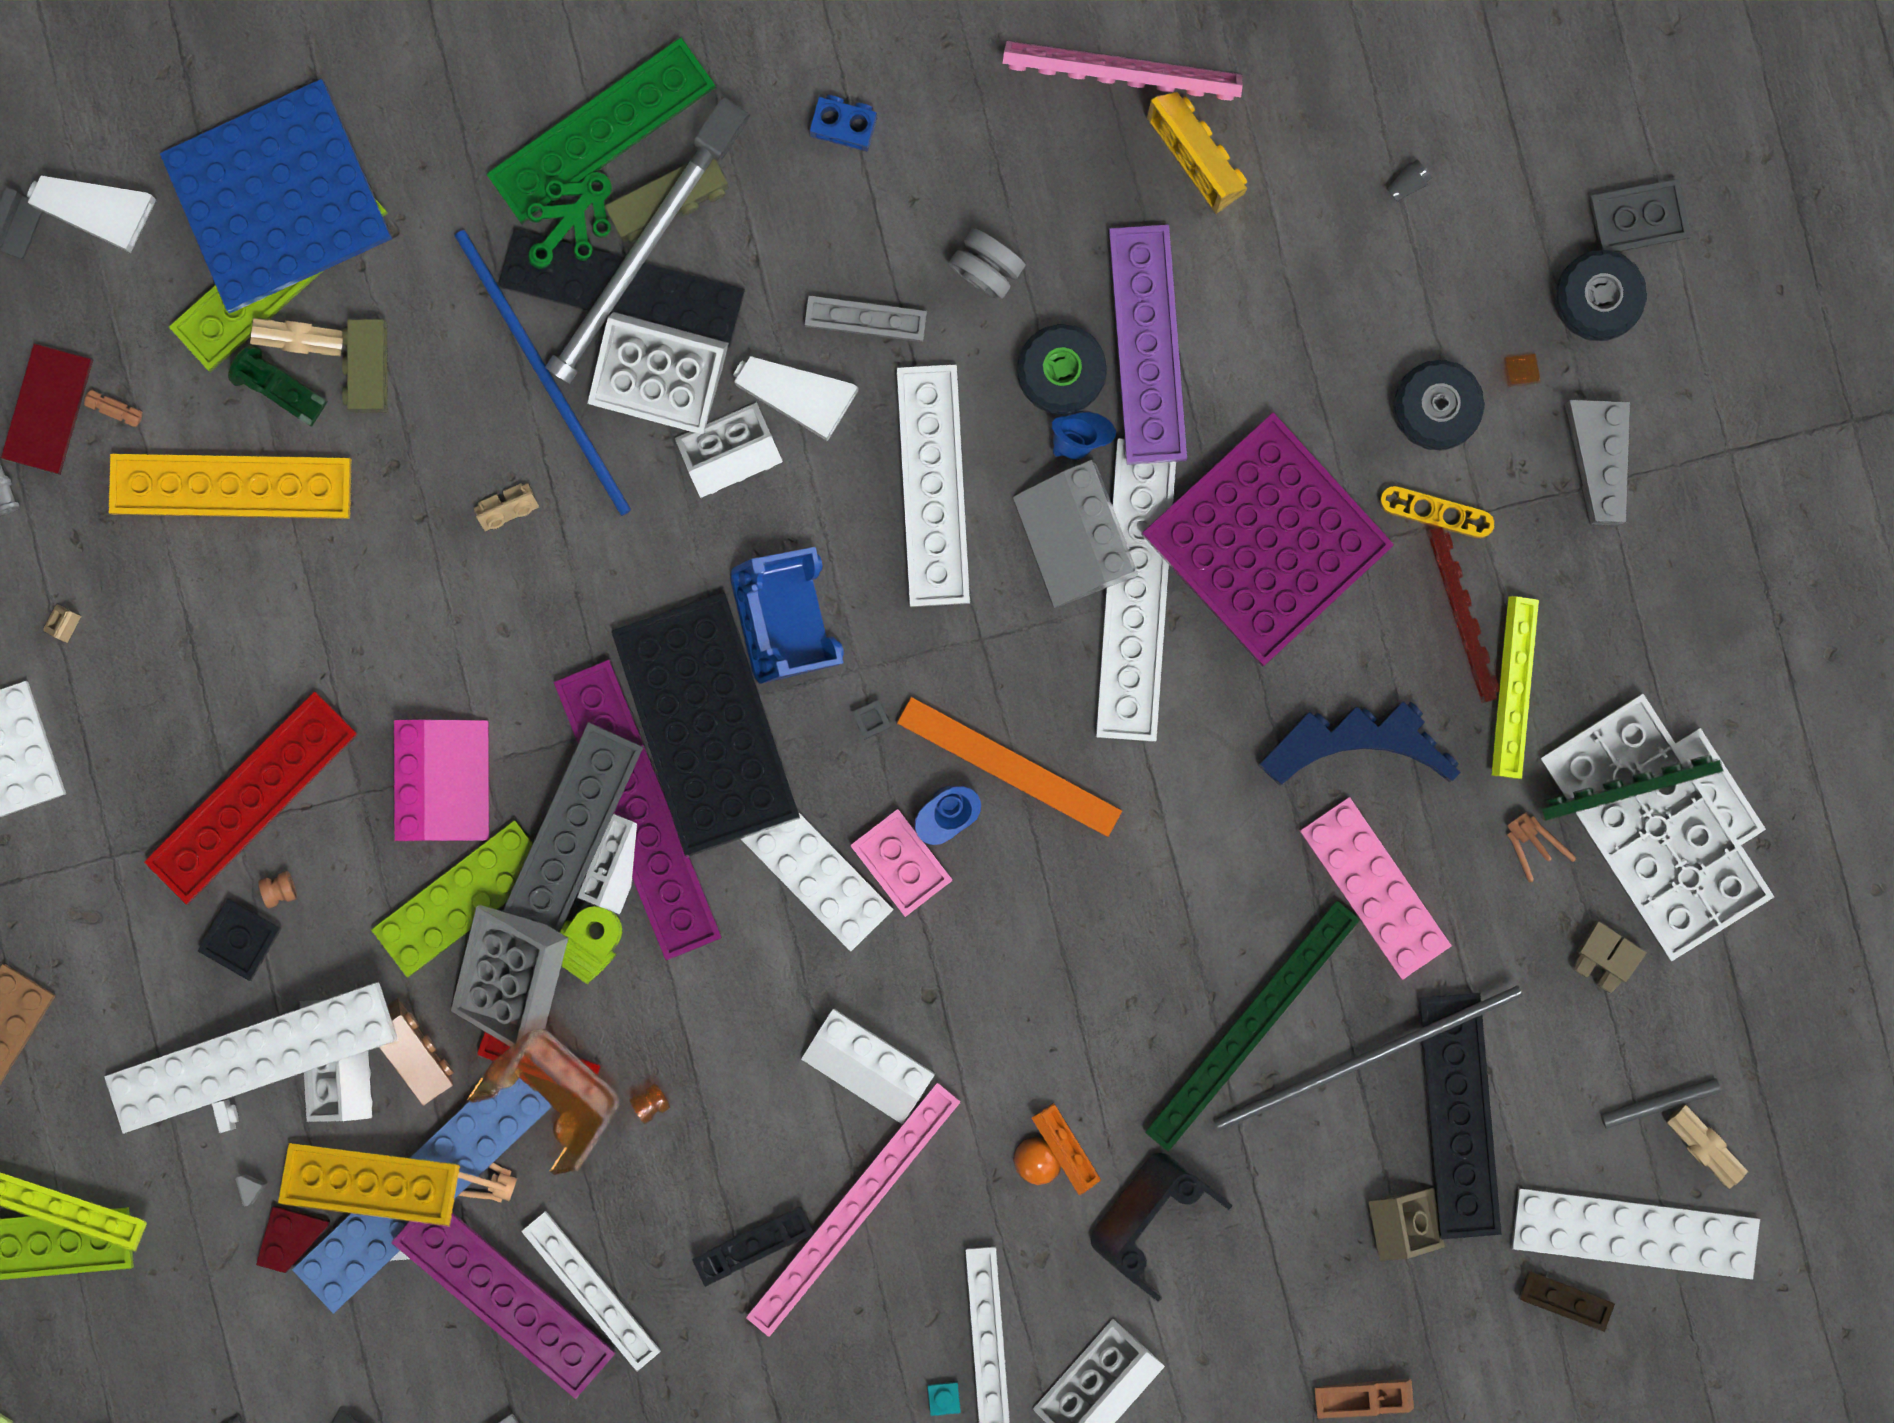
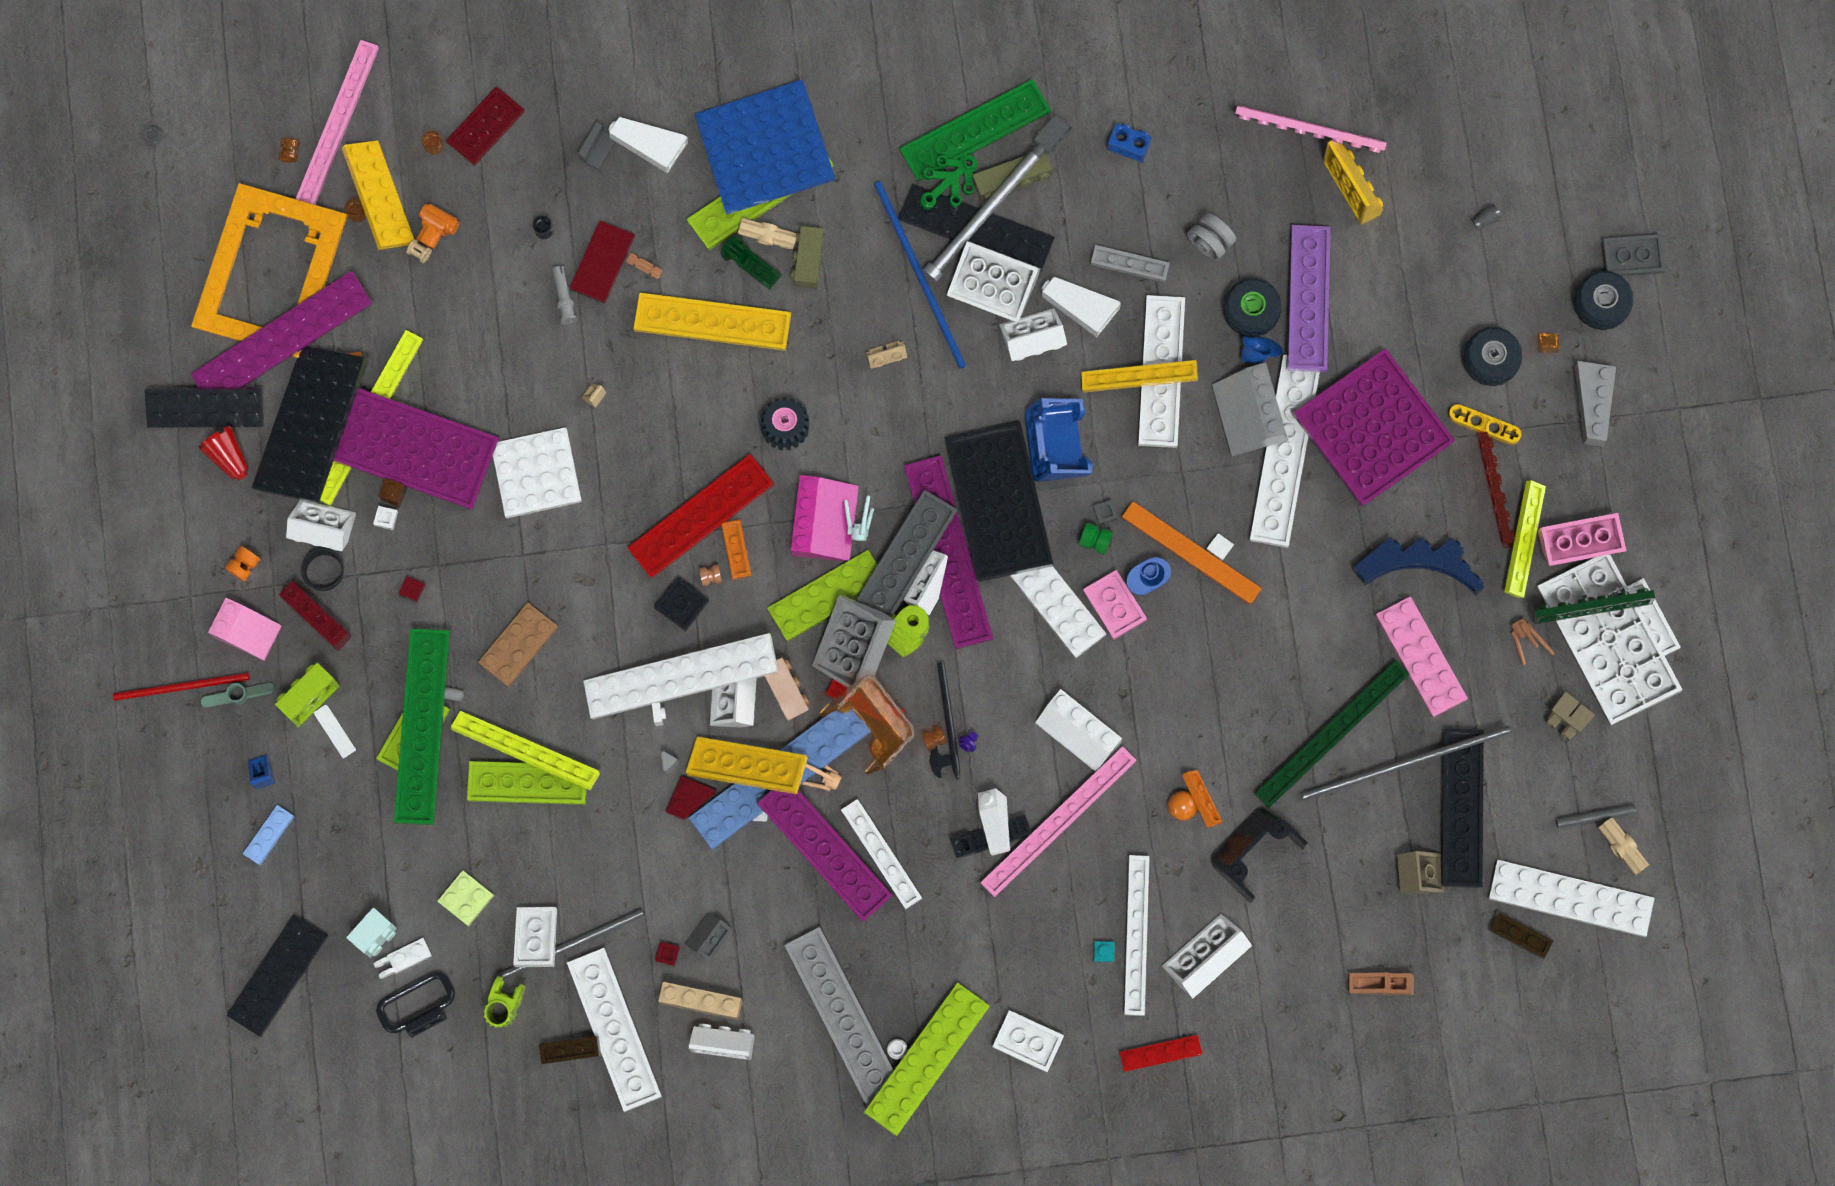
camera: 10 degrees right, 10 degrees down
(312, 842) = (736, 549): none -> orange tile
(361, 638) = (784, 423): none -> black wheel
(500, 793) = (859, 531): none -> light aqua plant
(658, 1135) = (937, 761): none -> black piece
(701, 1105) = (967, 743): none -> dark purple plate
(756, 1223) = (994, 820): none -> white slope
(861, 764) = (1094, 538): none -> green wheel
(900, 500) = (1139, 376): none -> yellow plate
(1052, 752) = (1220, 547): none -> white tile
(1602, 681) = (1582, 539): none -> bright pink slope

